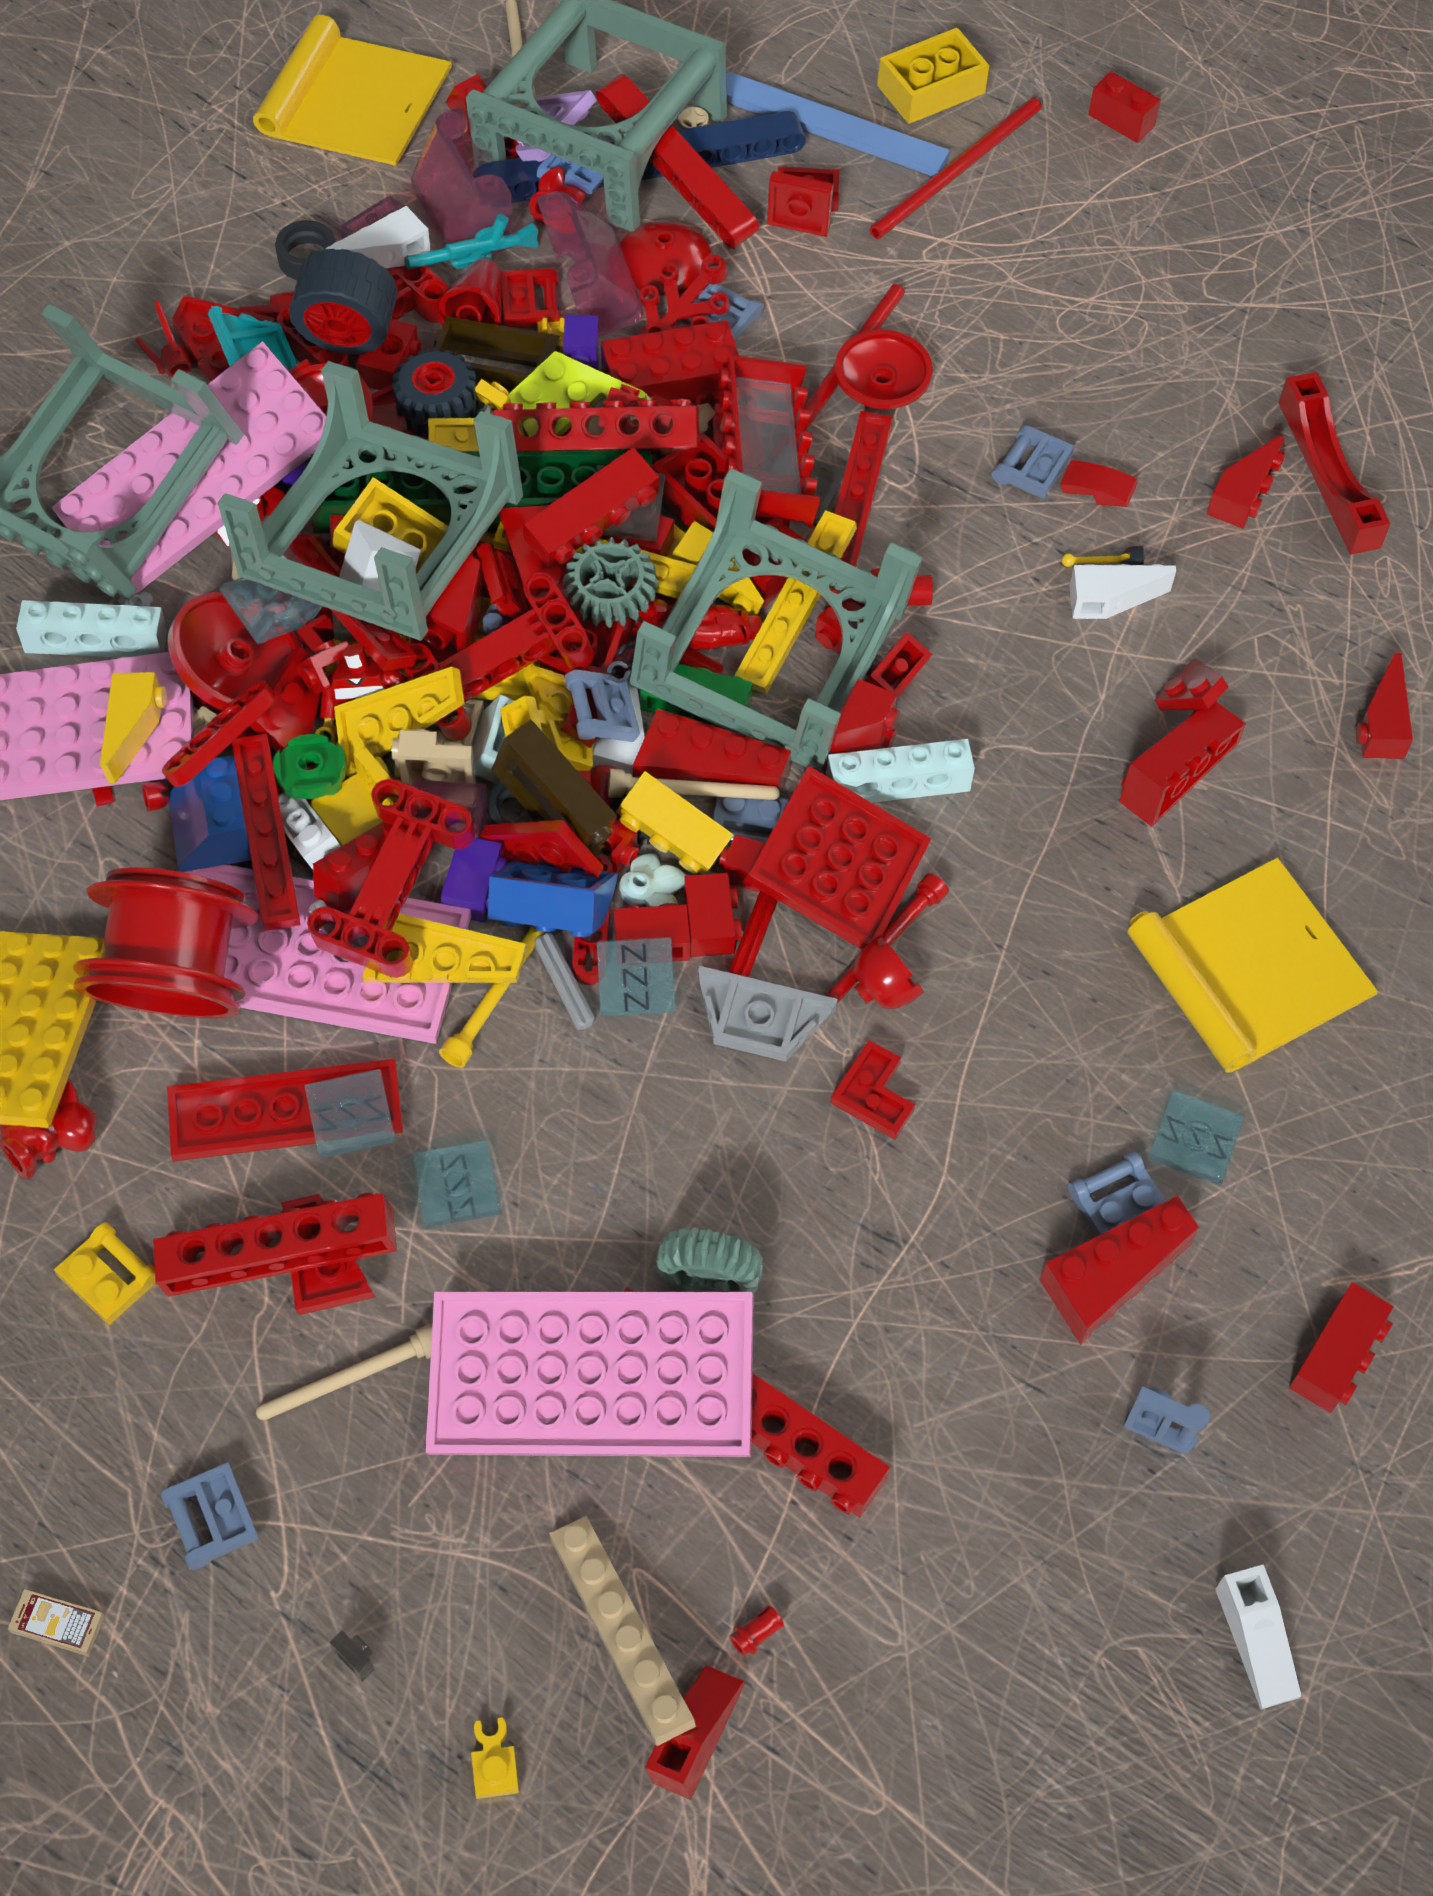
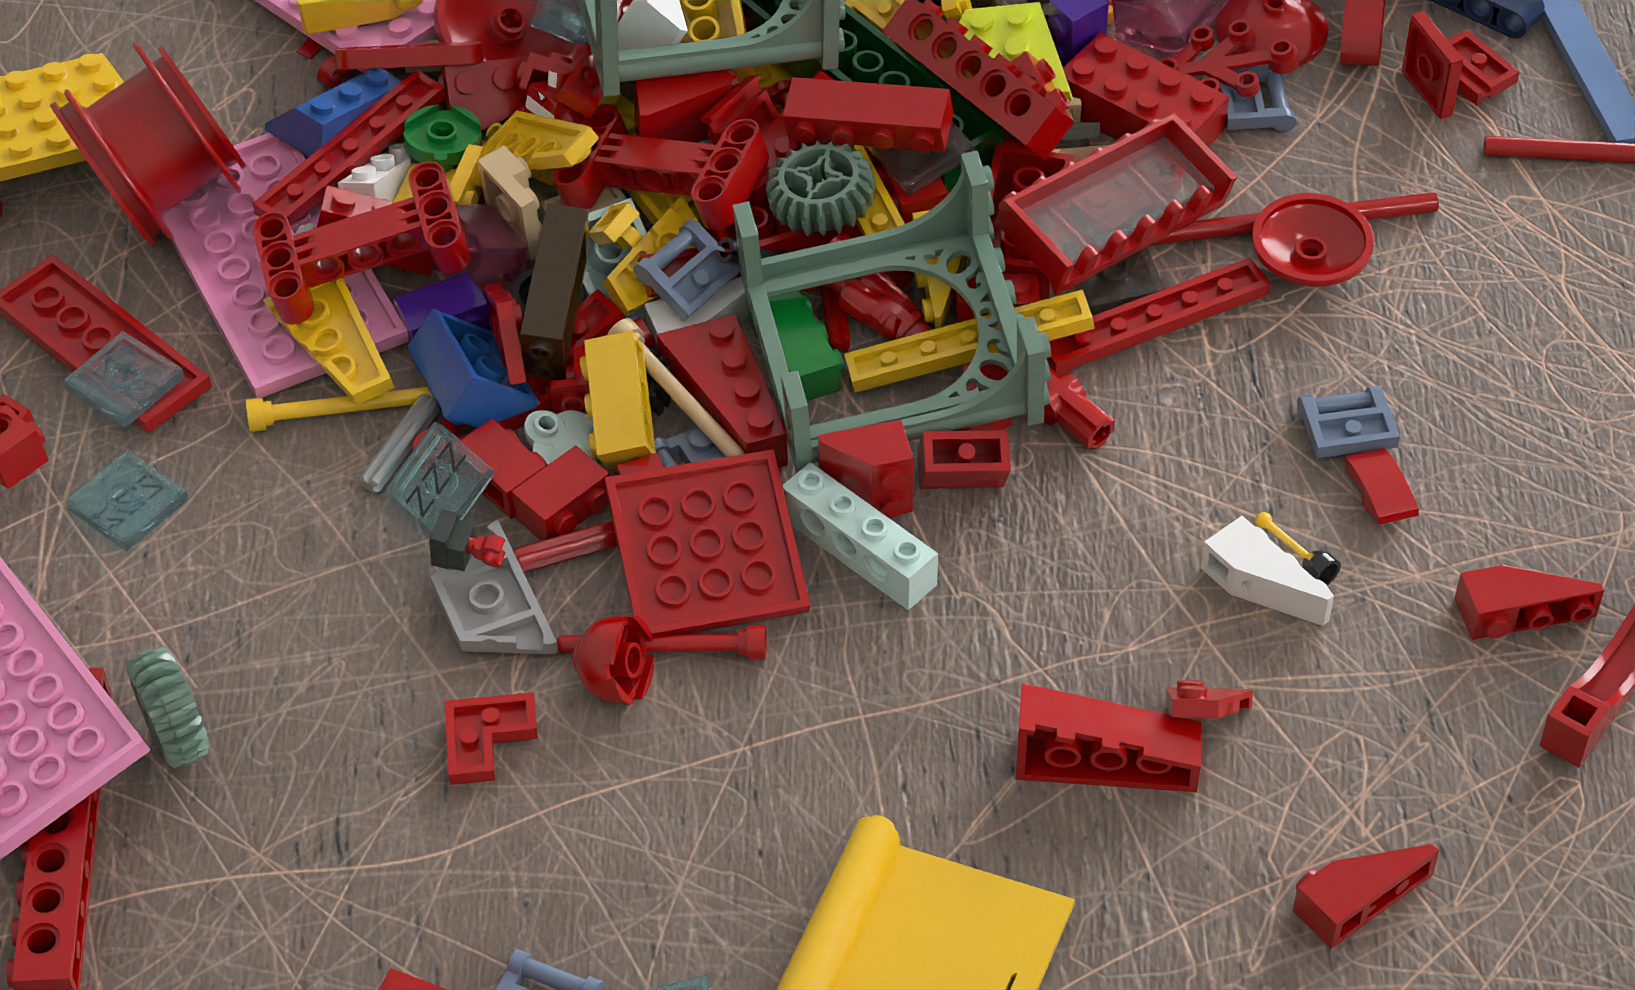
camera: 55 degrees right, 10 degrees down
(711, 1002) = (455, 541): none -> pearl dark grey piece

